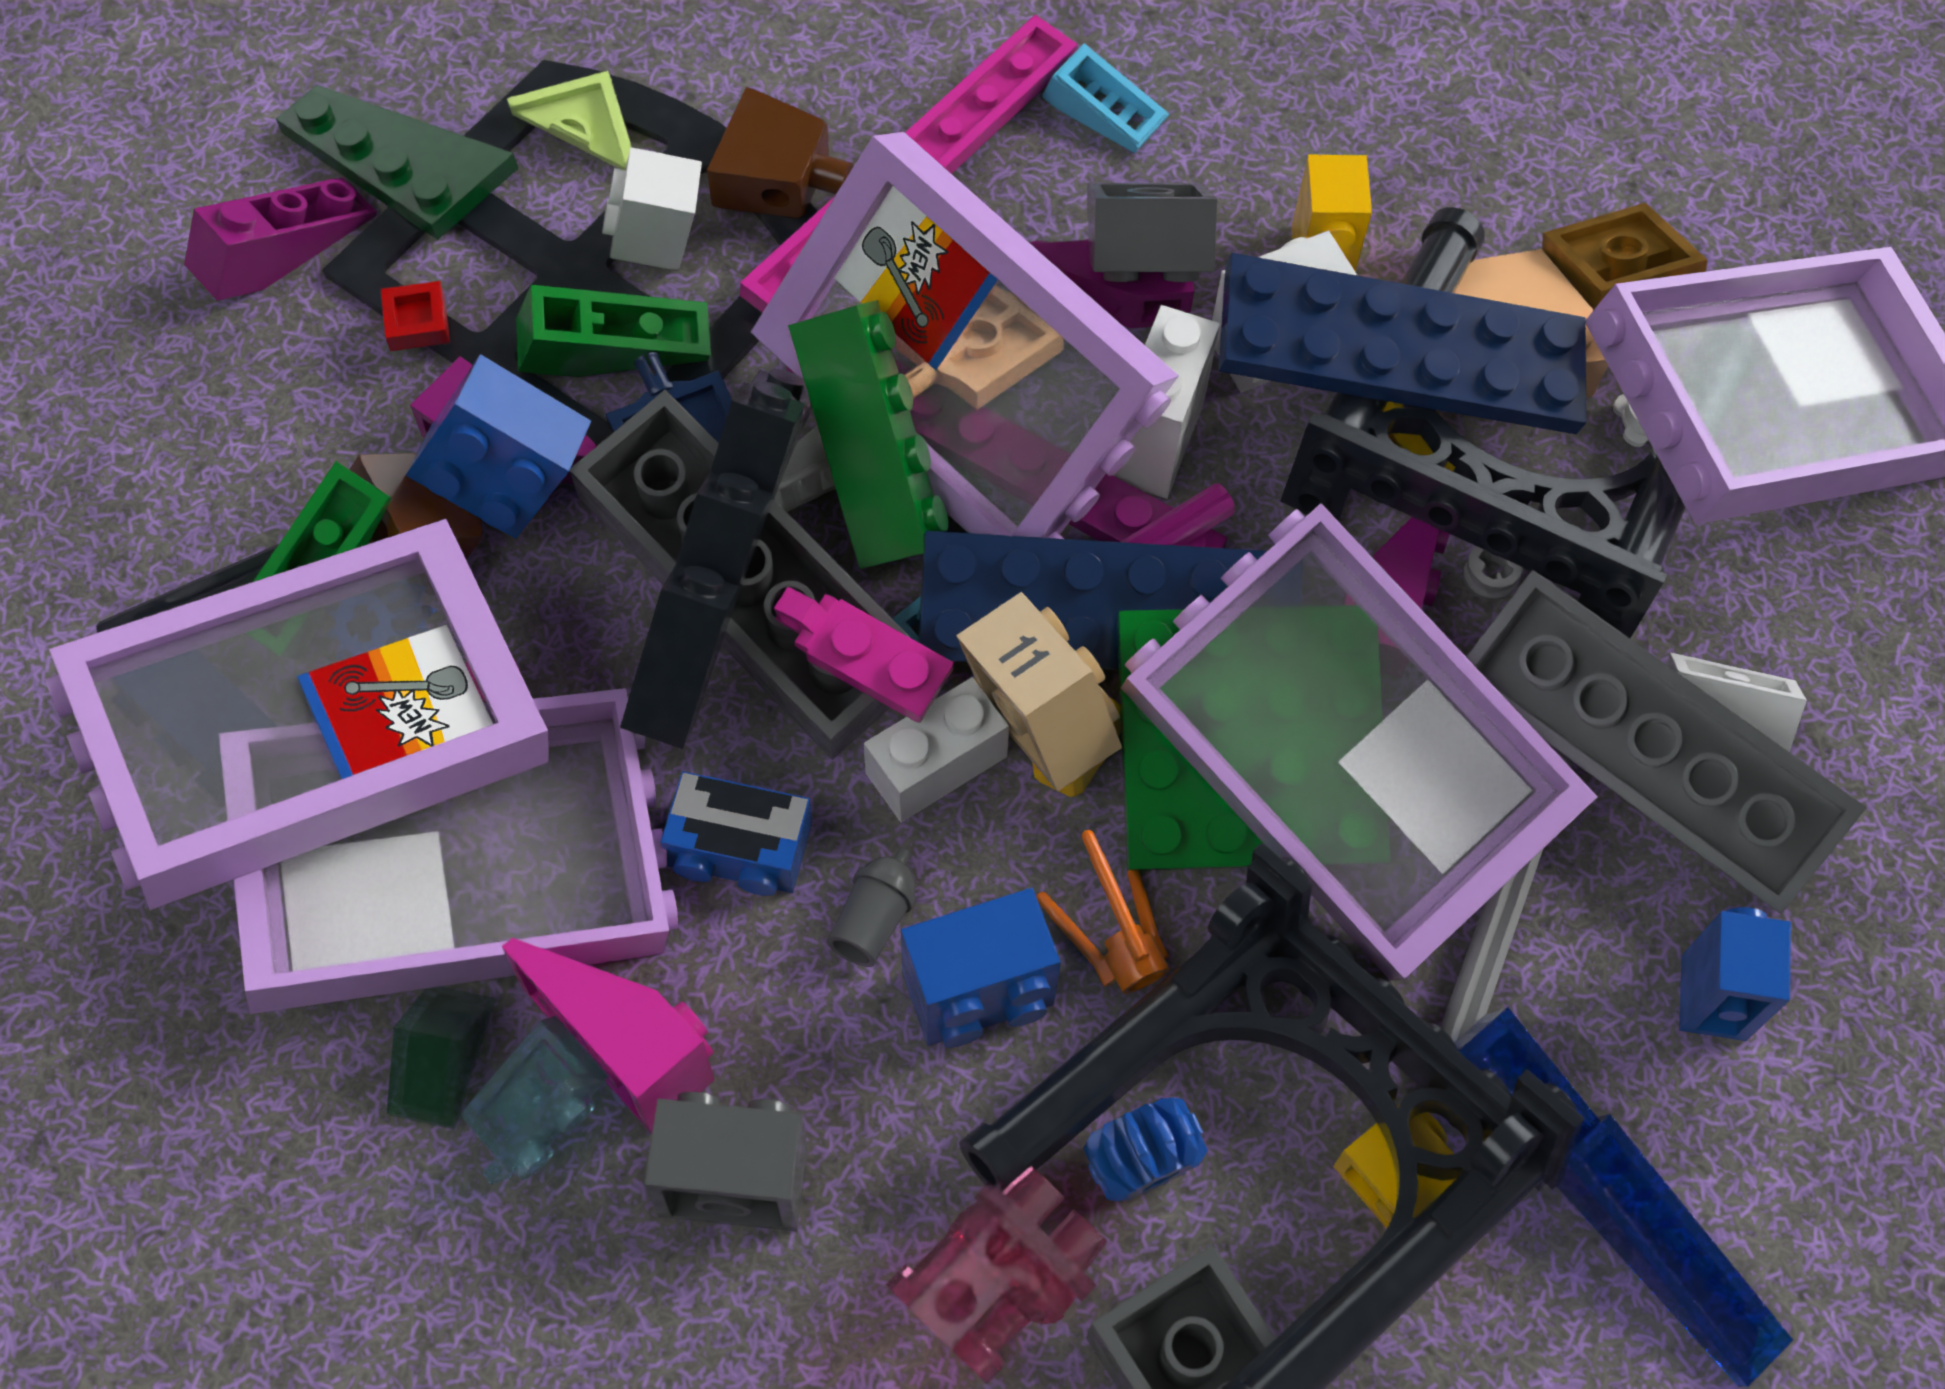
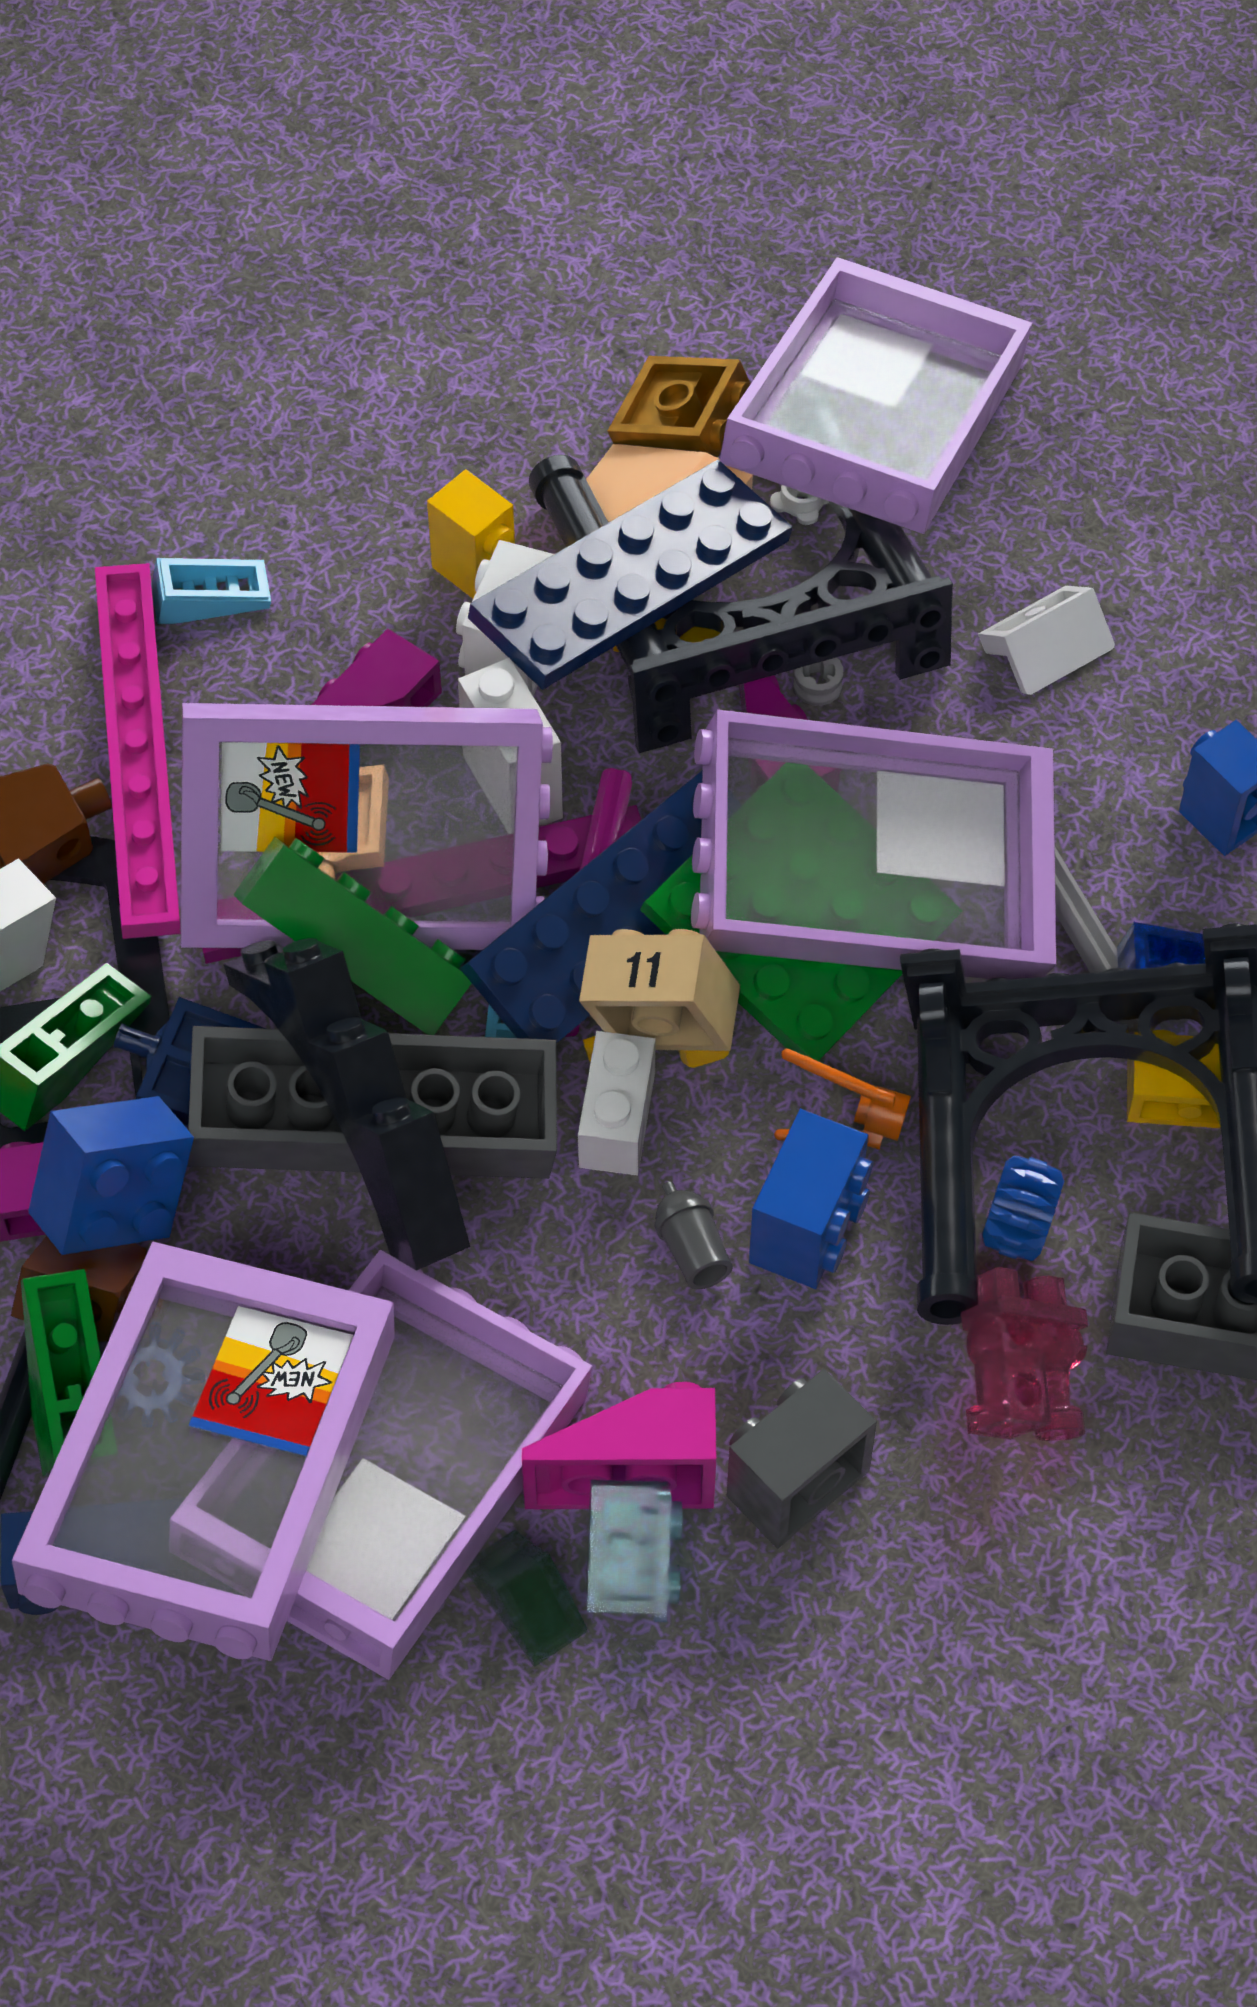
camera: 45 degrees left, 5 degrees down
(736, 834) = (554, 1273): brick -> none
(865, 652) = (522, 1072): dark pink hinge -> none
(1151, 230) = (371, 639): dark grey slope -> none
(1663, 743) = (1048, 684): dark grey brick -> none

